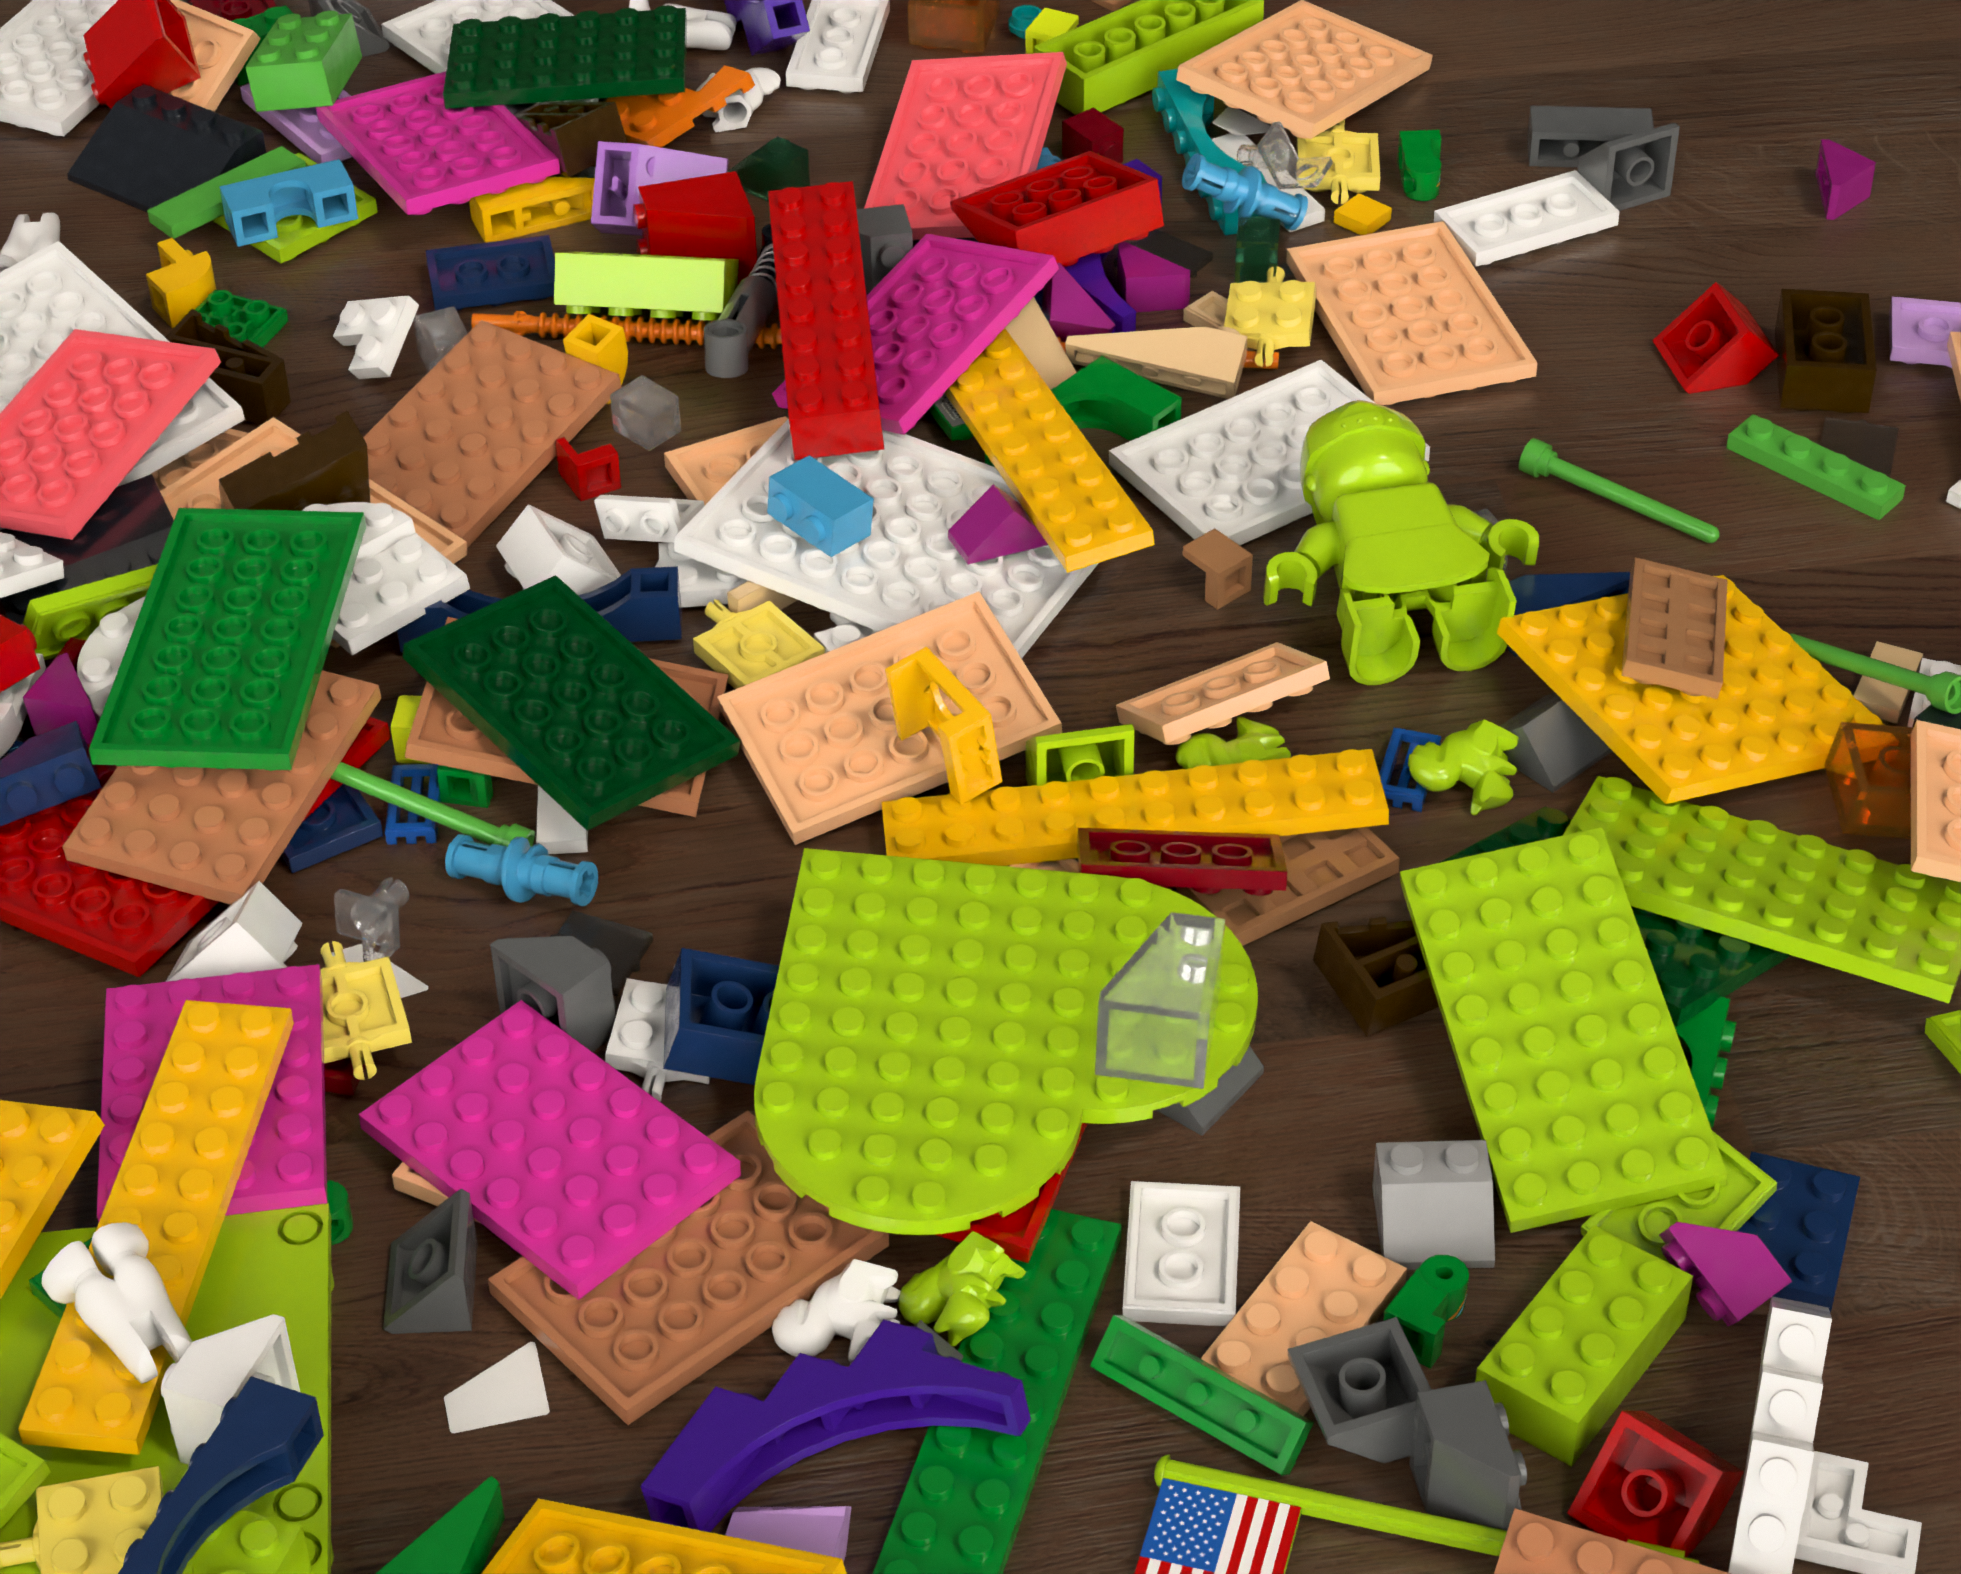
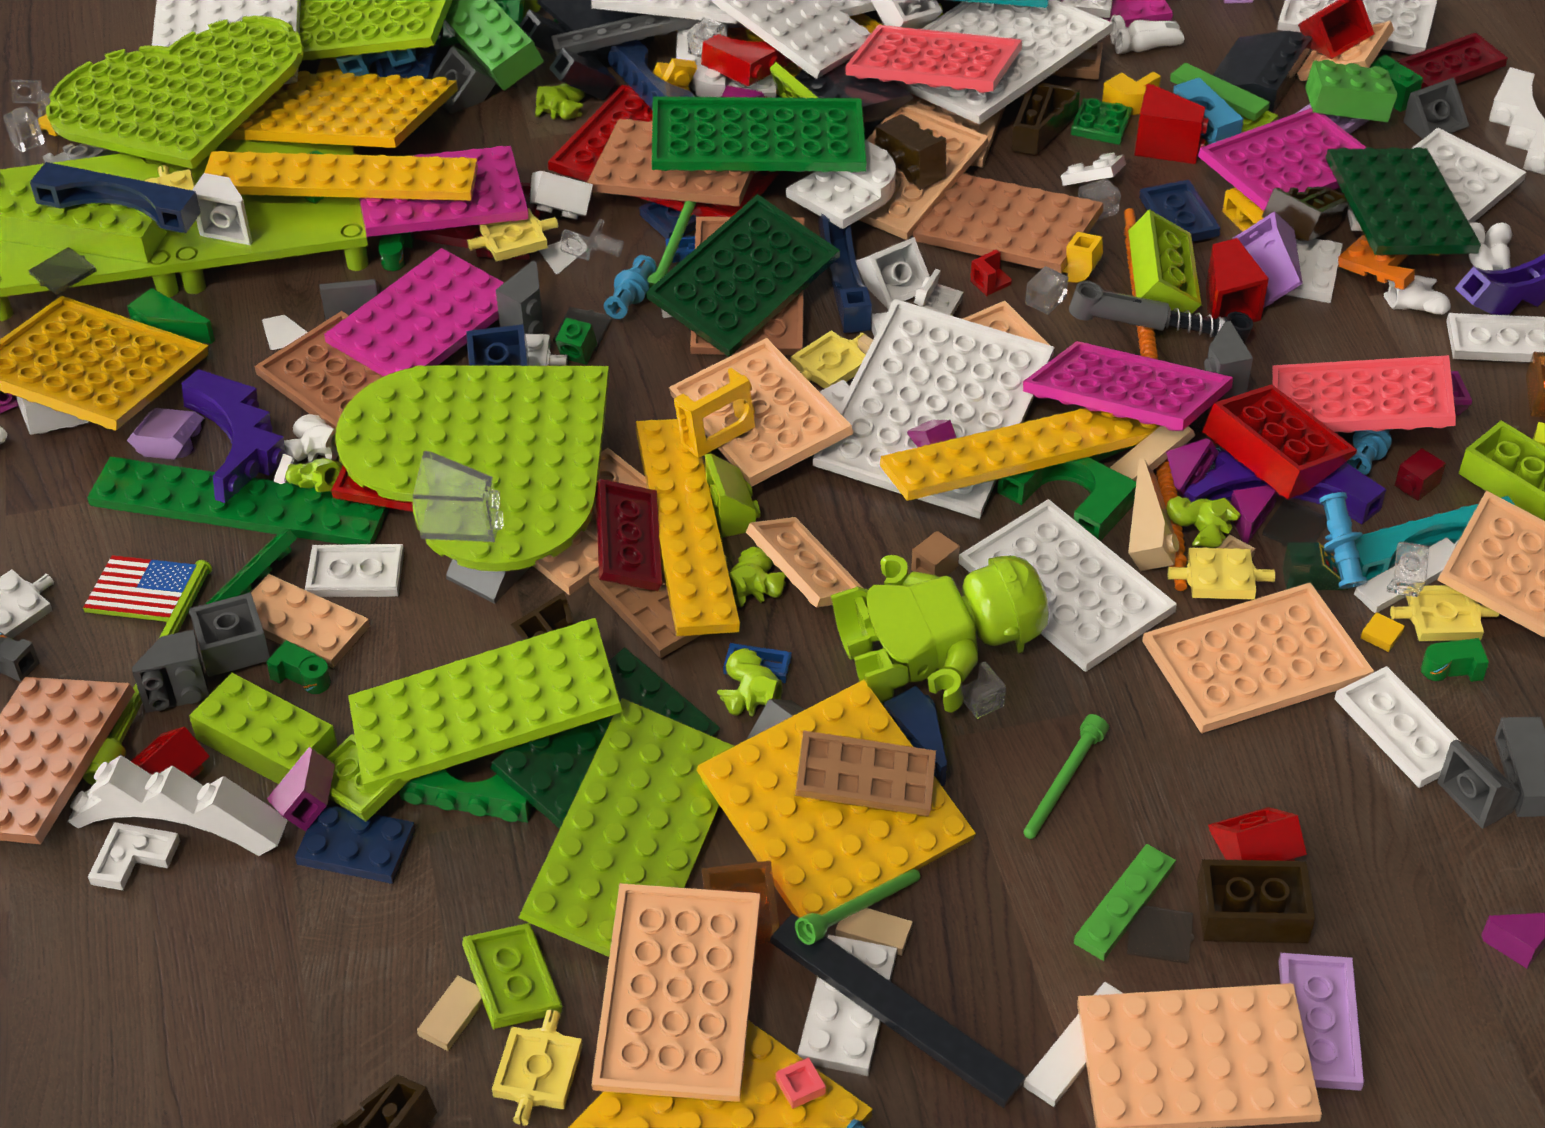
camera: 85 degrees right, 5 degrees up
(124, 1312) = (263, 158): white piece -> none
(300, 245) = (1170, 127): none -> red slope
(658, 936) = (576, 340): none -> green brick
(773, 168) = (1326, 321): clear green slope -> none
(820, 506) = (926, 351): dark azure brick -> none
(824, 321) = (1105, 328): red brick -> none
(1161, 310) = (1207, 515): none -> lime animal
(1434, 1202) = (372, 662): light grey slope -> none

